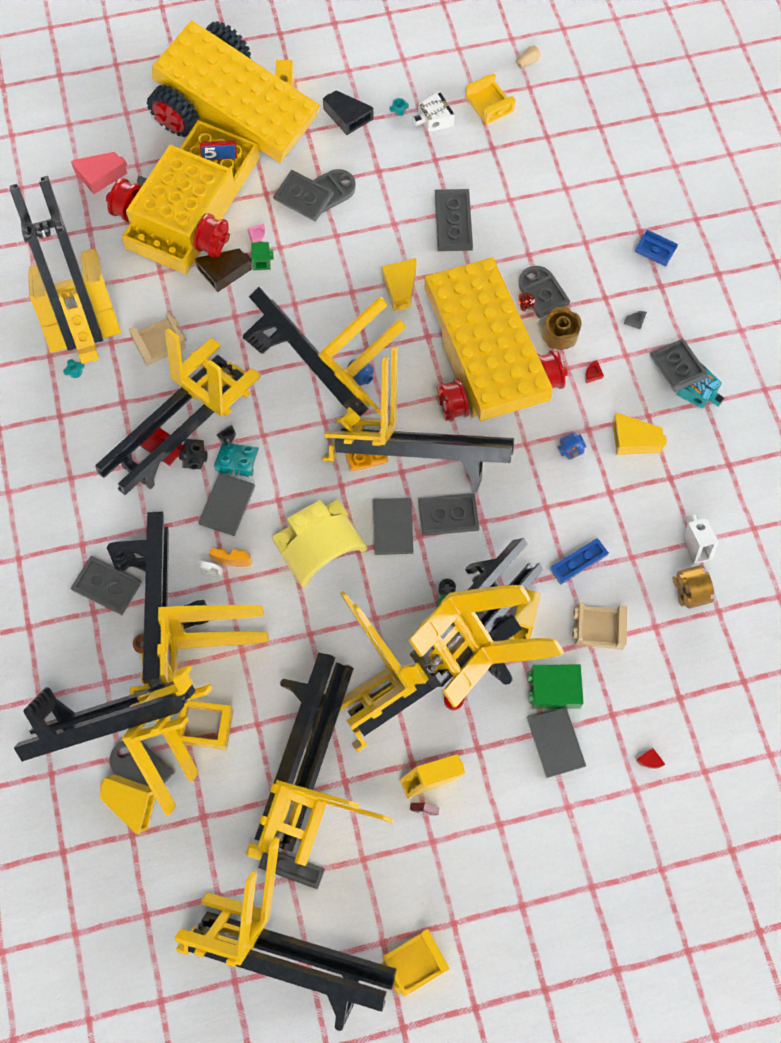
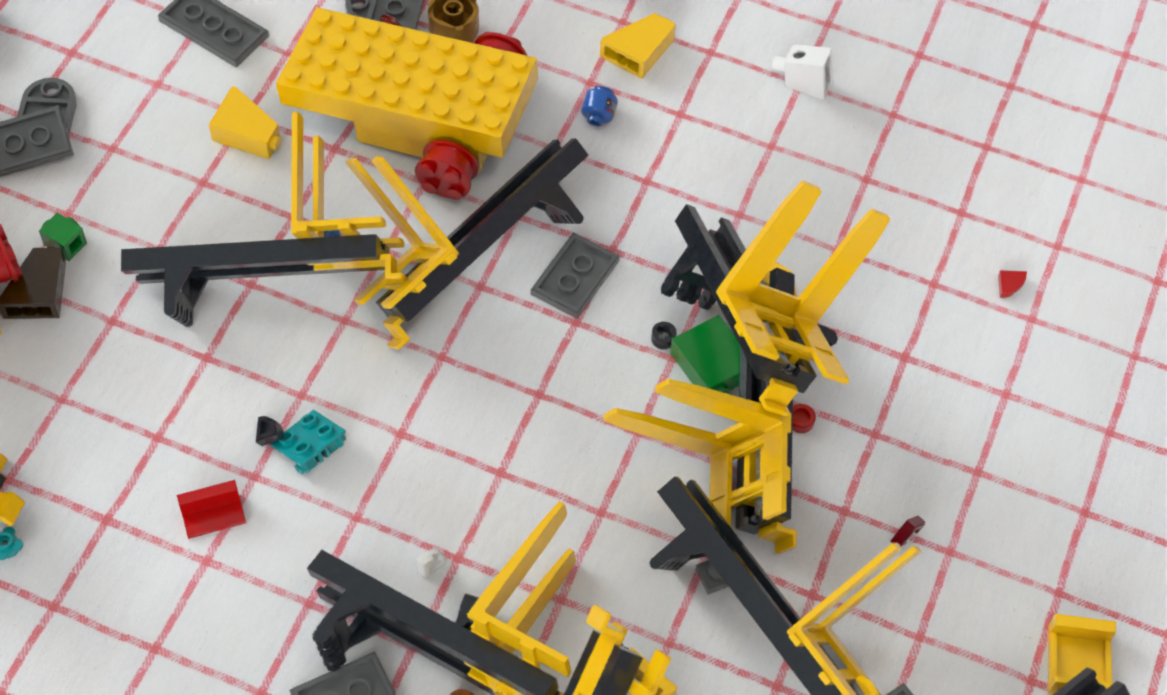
camera: 55 degrees left, 10 degrees down
(152, 339) = (62, 420): tan panel -> none
(193, 454) = (261, 479): black brick -> none
(214, 385) = (197, 387): piece -> none
(226, 504) = (358, 491): dark grey tile -> none
(236, 558) = (442, 523): light orange slope -> none
(256, 233) = (23, 224): bright pink tile -> none
(316, 538) = (502, 417): light yellow piece -> none
(364, 461) = (433, 313): light orange slope -> none
(393, 526) = (542, 337): dark grey tile -> none
(432, 775) = (878, 496): yellow slope -> none
(555, 686) = (865, 308): green brick -> none
(556, 742) = (927, 354): dark grey tile -> none
(579, 561) = (738, 191): blue plate -> none
(593, 372) = (528, 31): red tile -> none
(600, 627) = (830, 221): tan panel -> none
(694, 587) = (856, 109): pearl gold brick -> none

